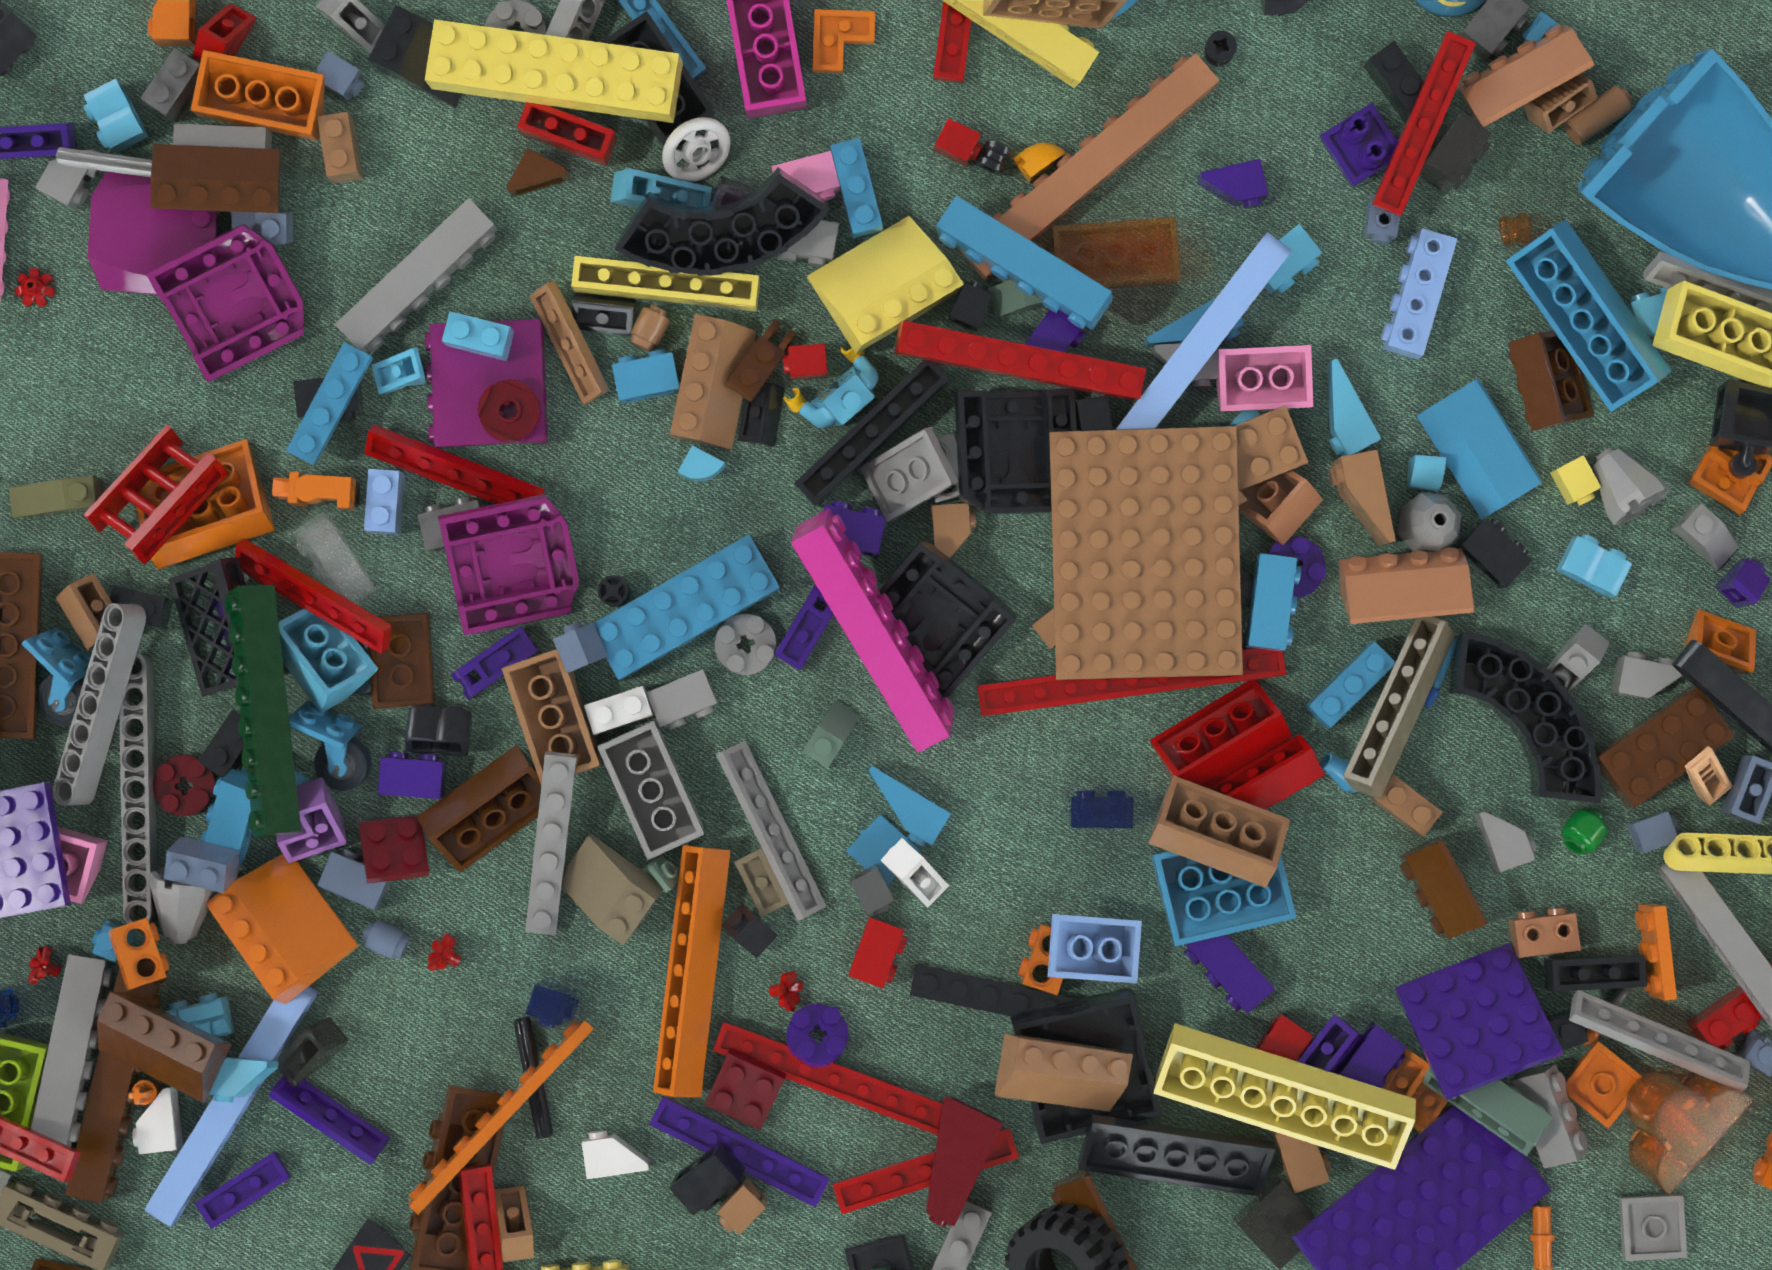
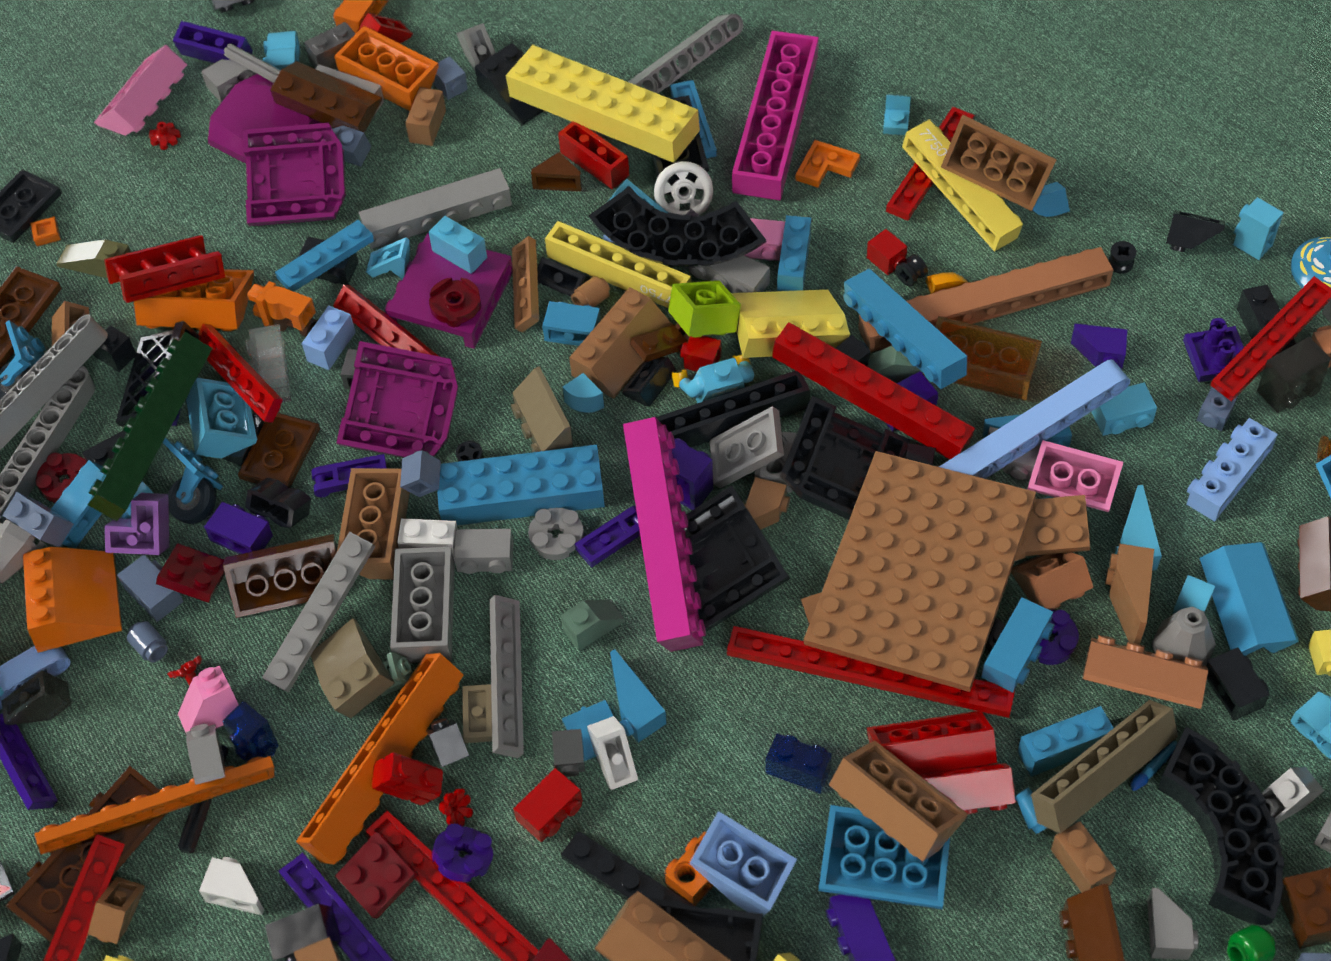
camera: 30 degrees right, 30 degrees down
(491, 988) = (207, 700): none -> bright pink slope
(524, 1050) = (205, 753): none -> light grey slope
(672, 520) = (541, 414): none -> dark tan slope
(731, 988) = (407, 778): none -> red brick
(792, 314) = (704, 308): none -> lime brick

